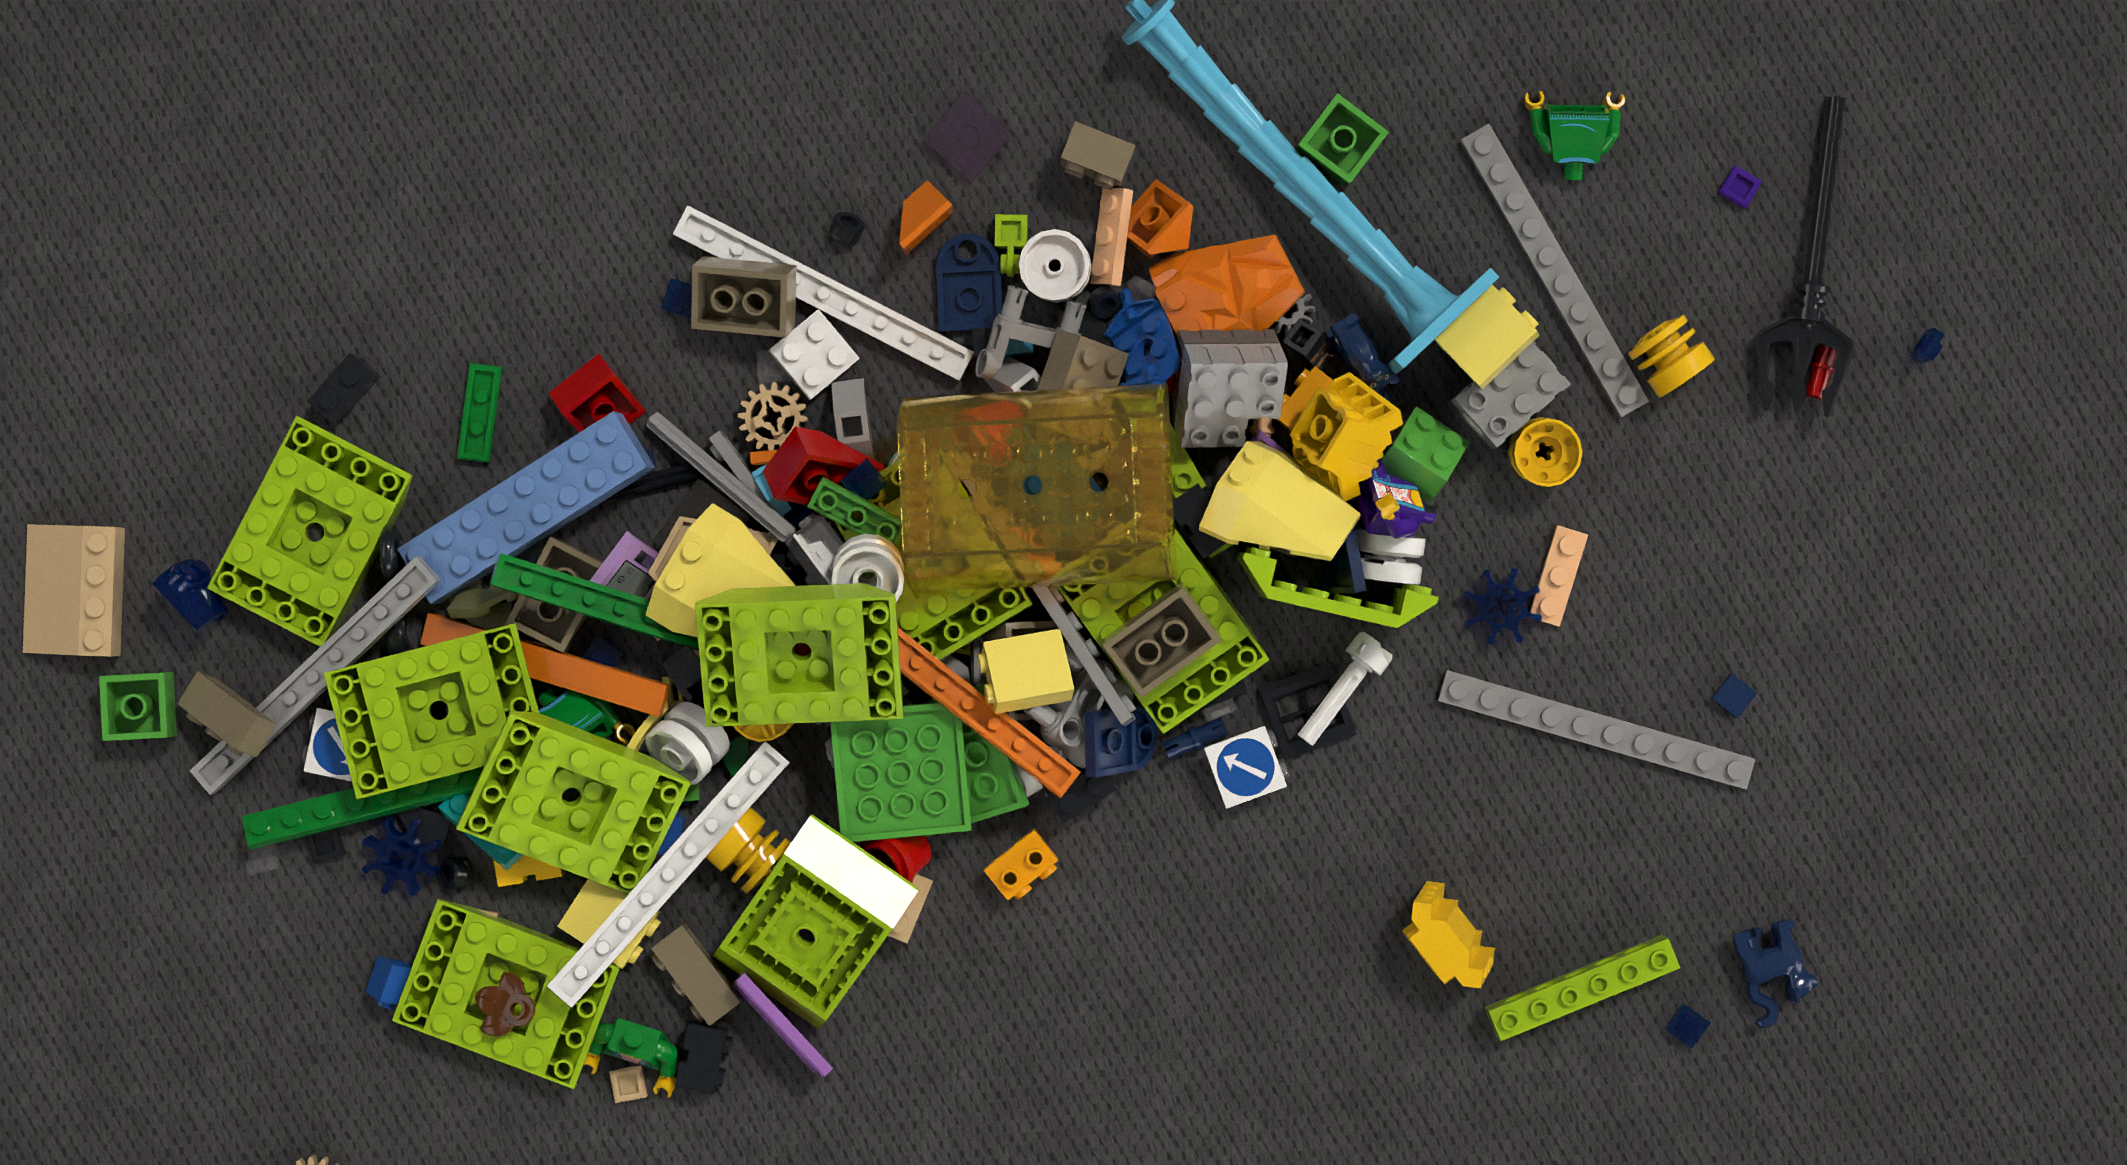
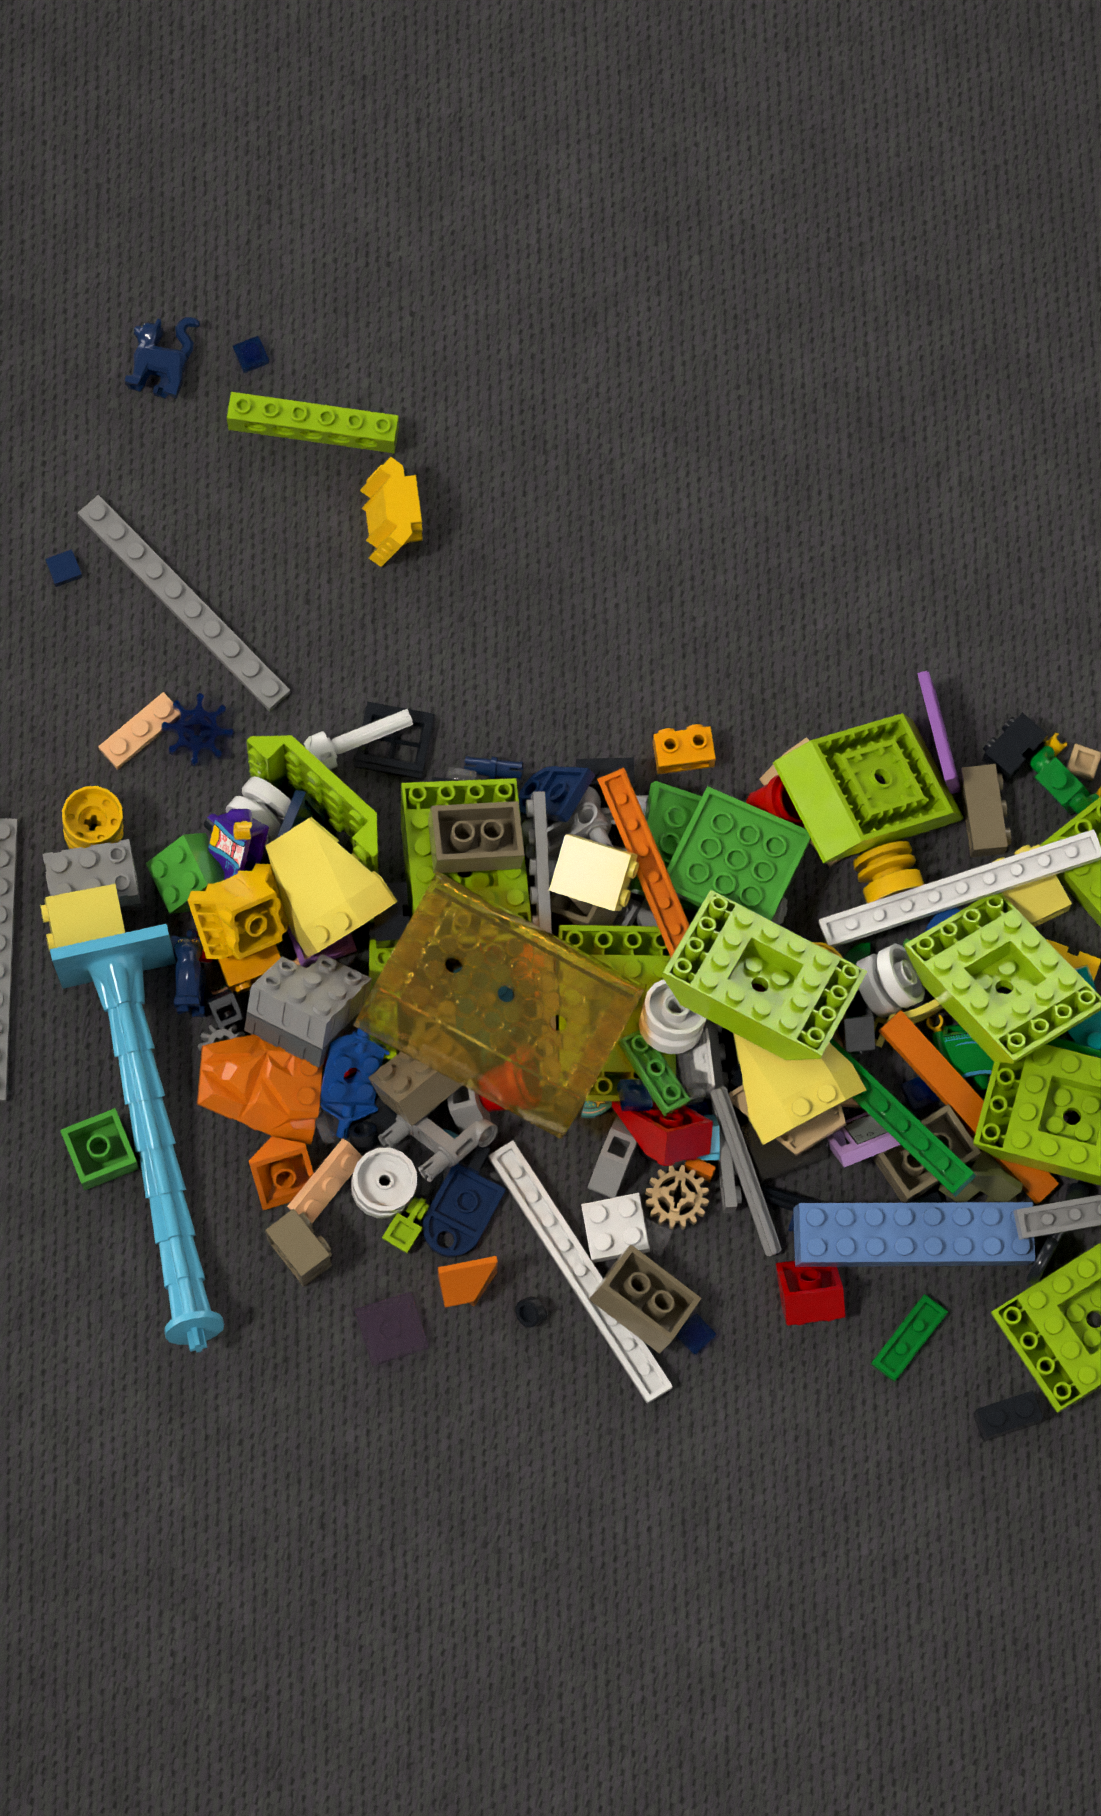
camera: 155 degrees left, 15 degrees down
(1246, 765) = (466, 724): piece -> none

